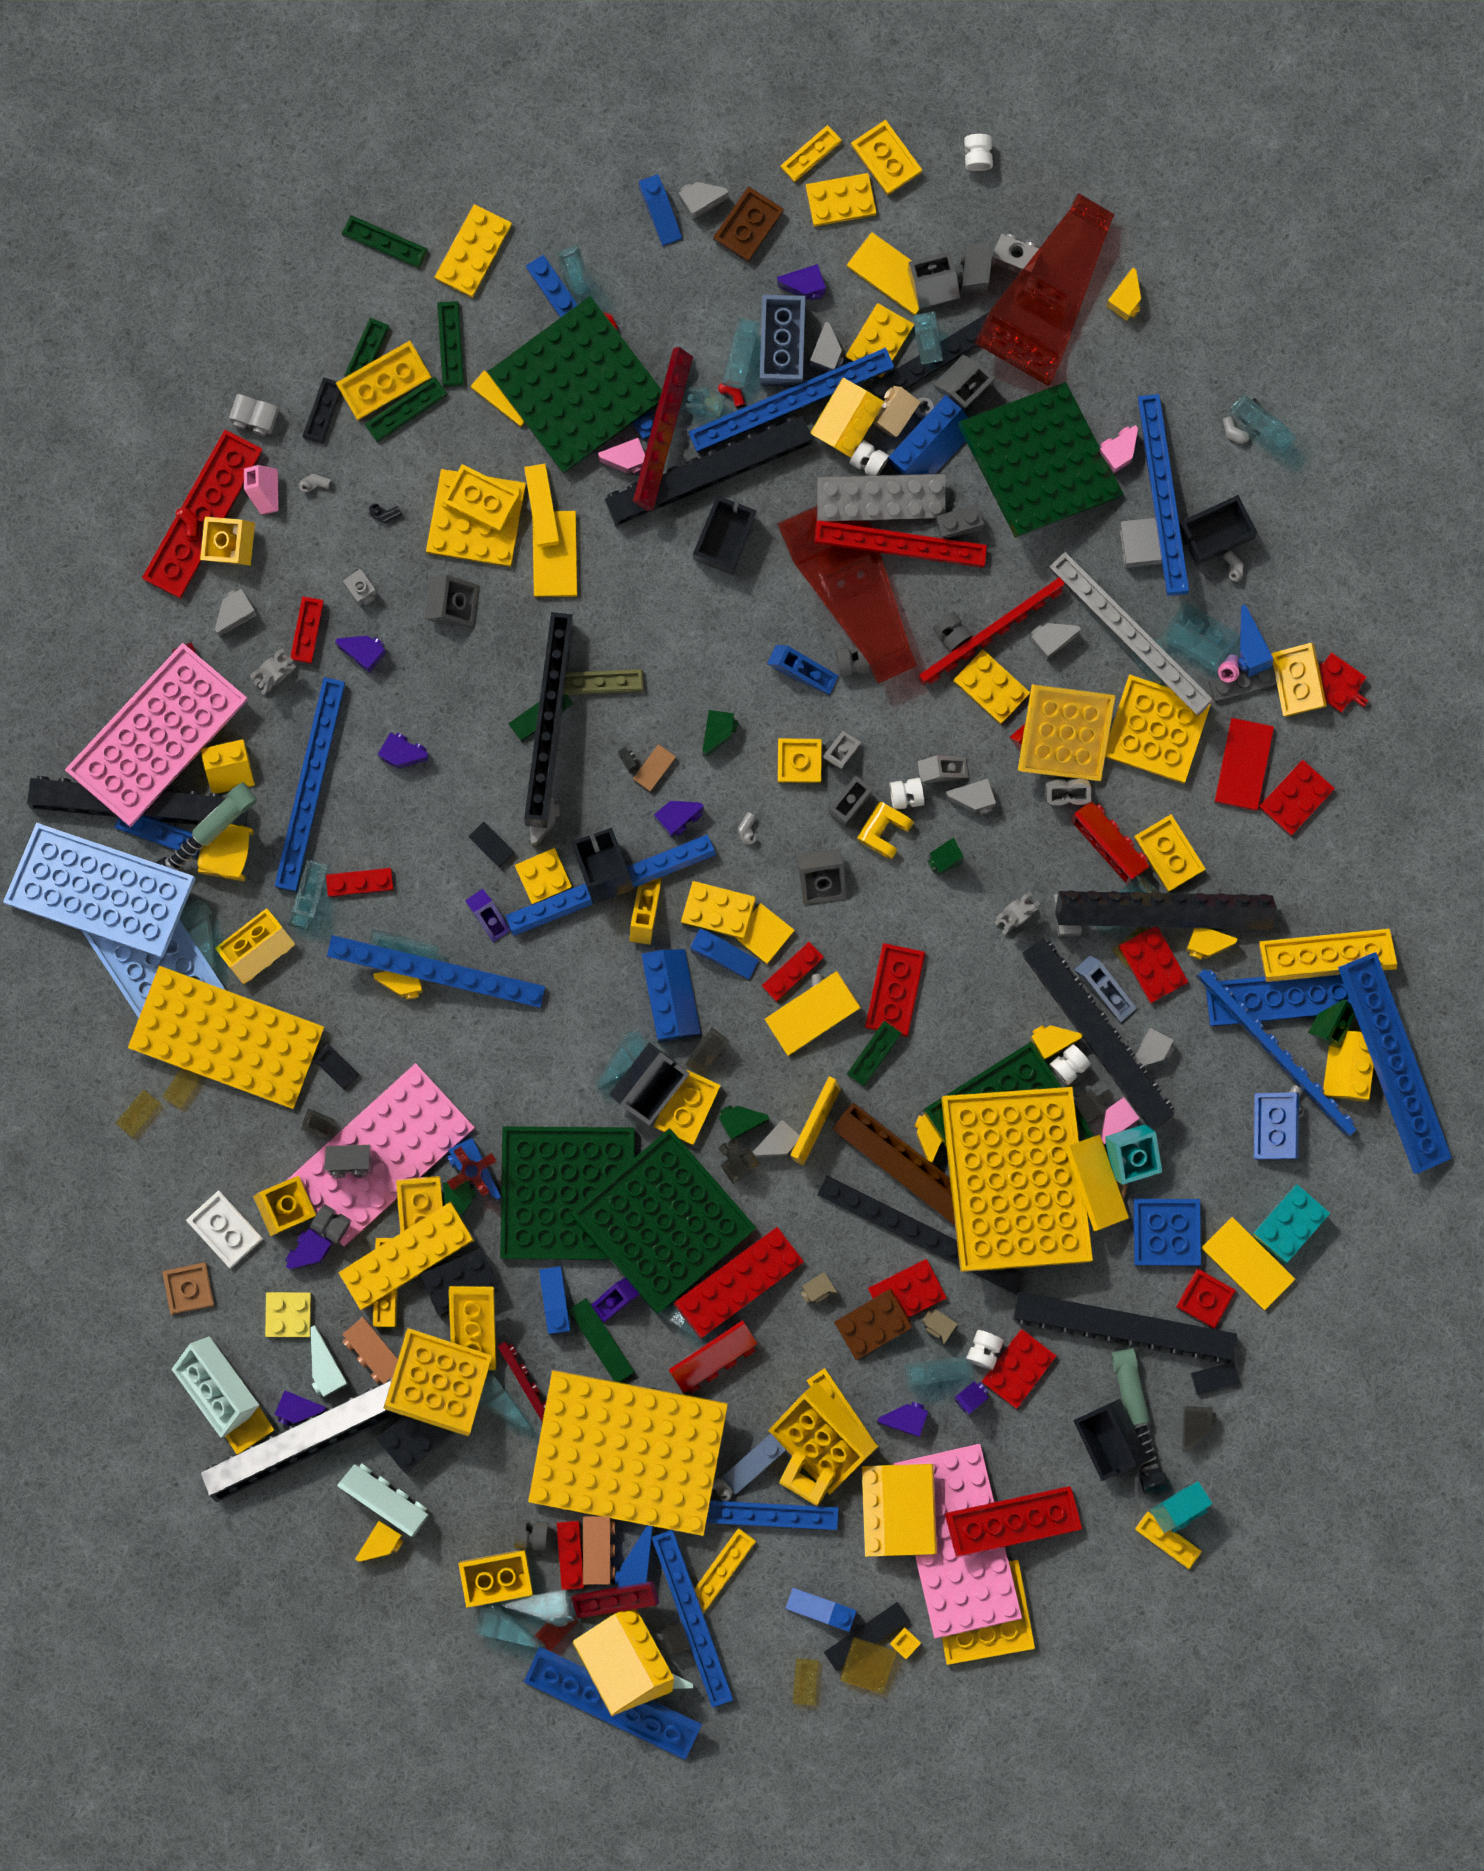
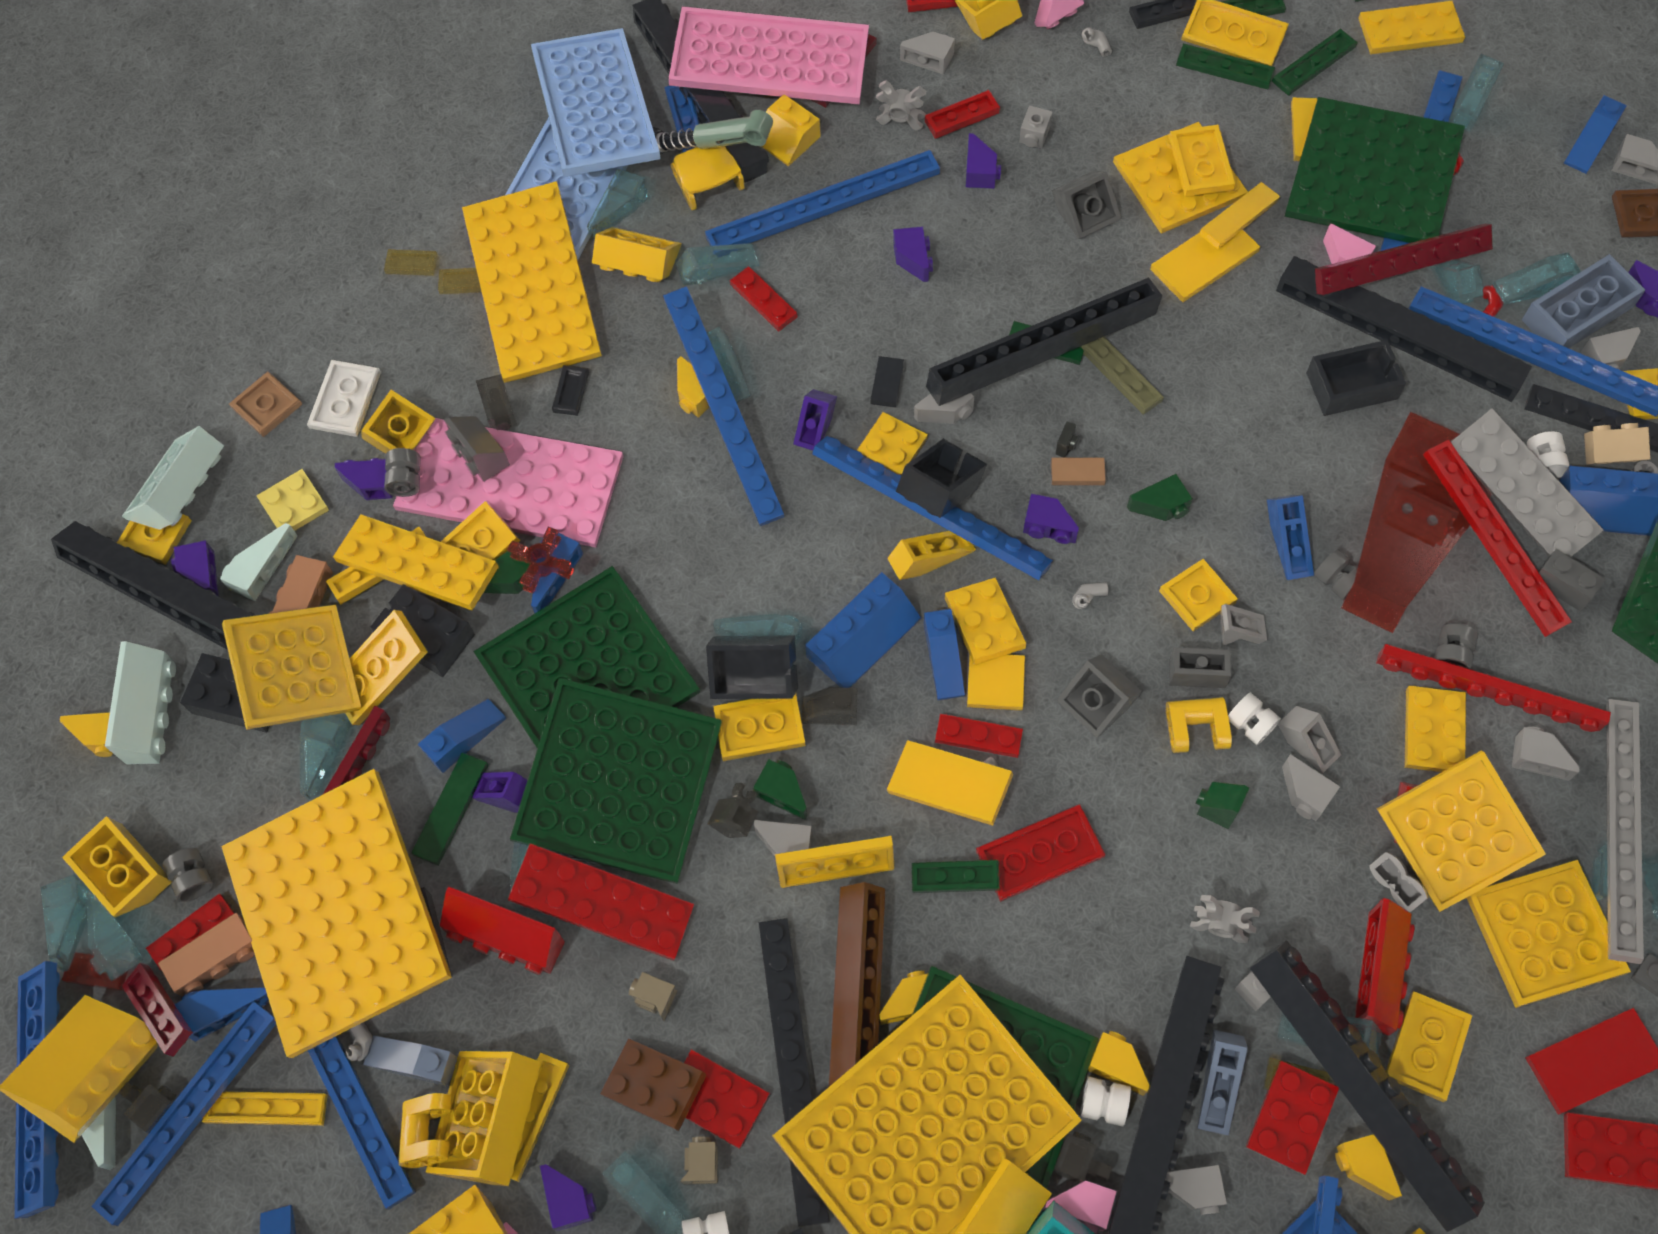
camera: 60 degrees right, 15 degrees down
(384, 515) = (1116, 107): black arm -> none
(847, 417) = (1570, 404): yellow slope -> none

